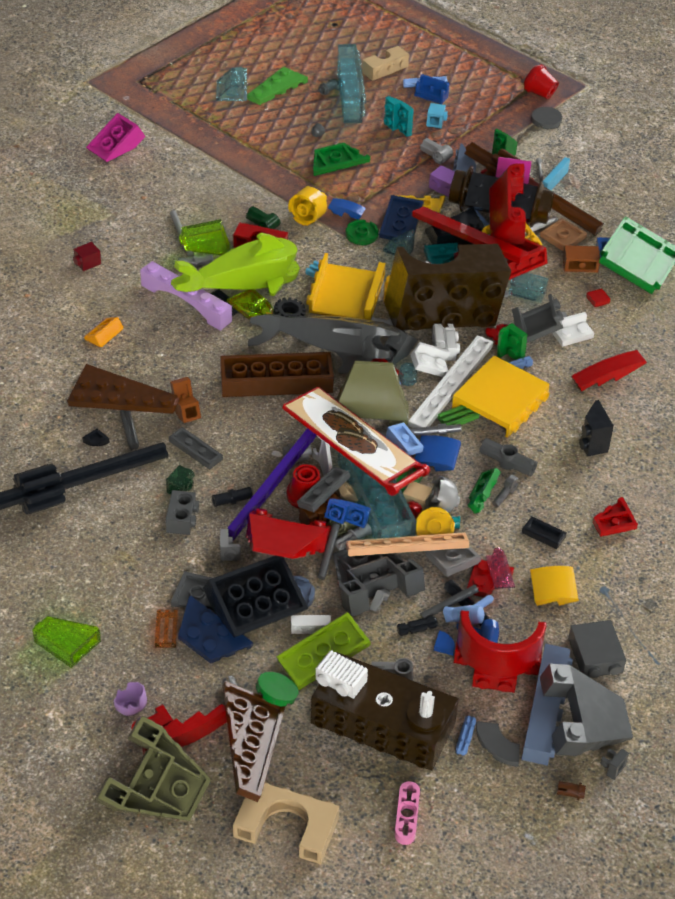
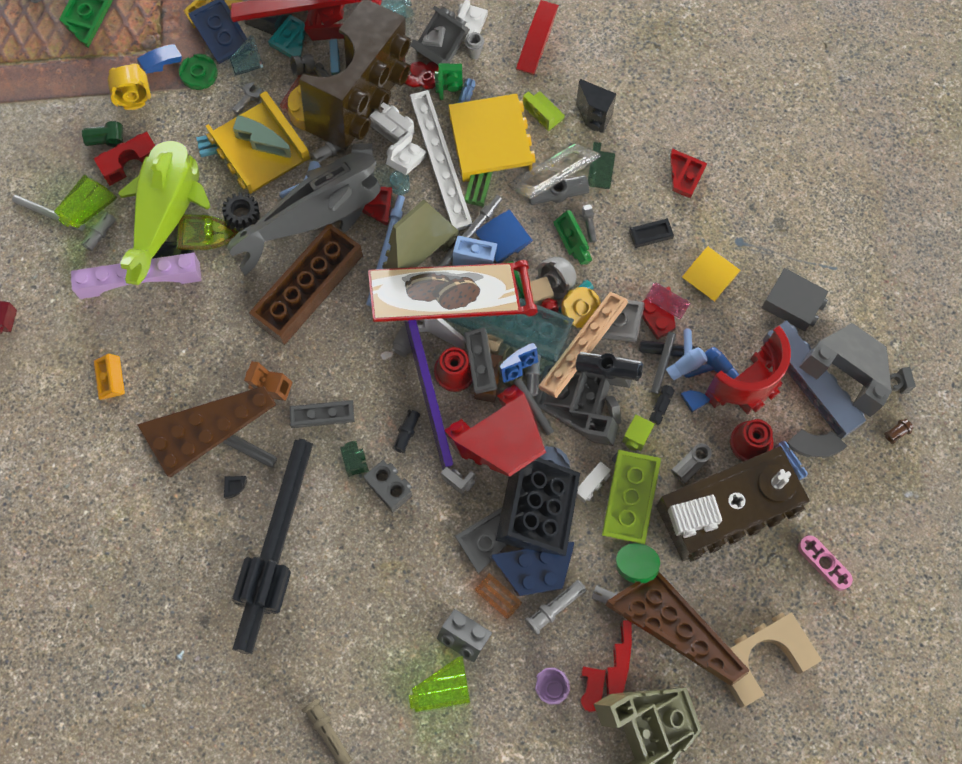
camera: 45 degrees left, 25 degrees up
(117, 626) = (463, 635): none -> dark grey bracket
(183, 663) = (548, 612): none -> light grey pin
(350, 284) = (260, 137): none -> sand green slope
(372, 265) = (248, 88): none -> flat silver bar
(376, 621) = (637, 433): none -> lime brick
(402, 558) = (621, 367): none -> black piece
(456, 684) = (745, 445): none -> red piece
(517, 439) = (530, 192): none -> clear door
(534, 317) = (435, 37): none -> light grey tile
(556, 340) = (474, 44): none -> light grey cone
(556, 468) = (601, 169): none -> clear green panel
(560, 411) = (542, 110): none -> lime panel

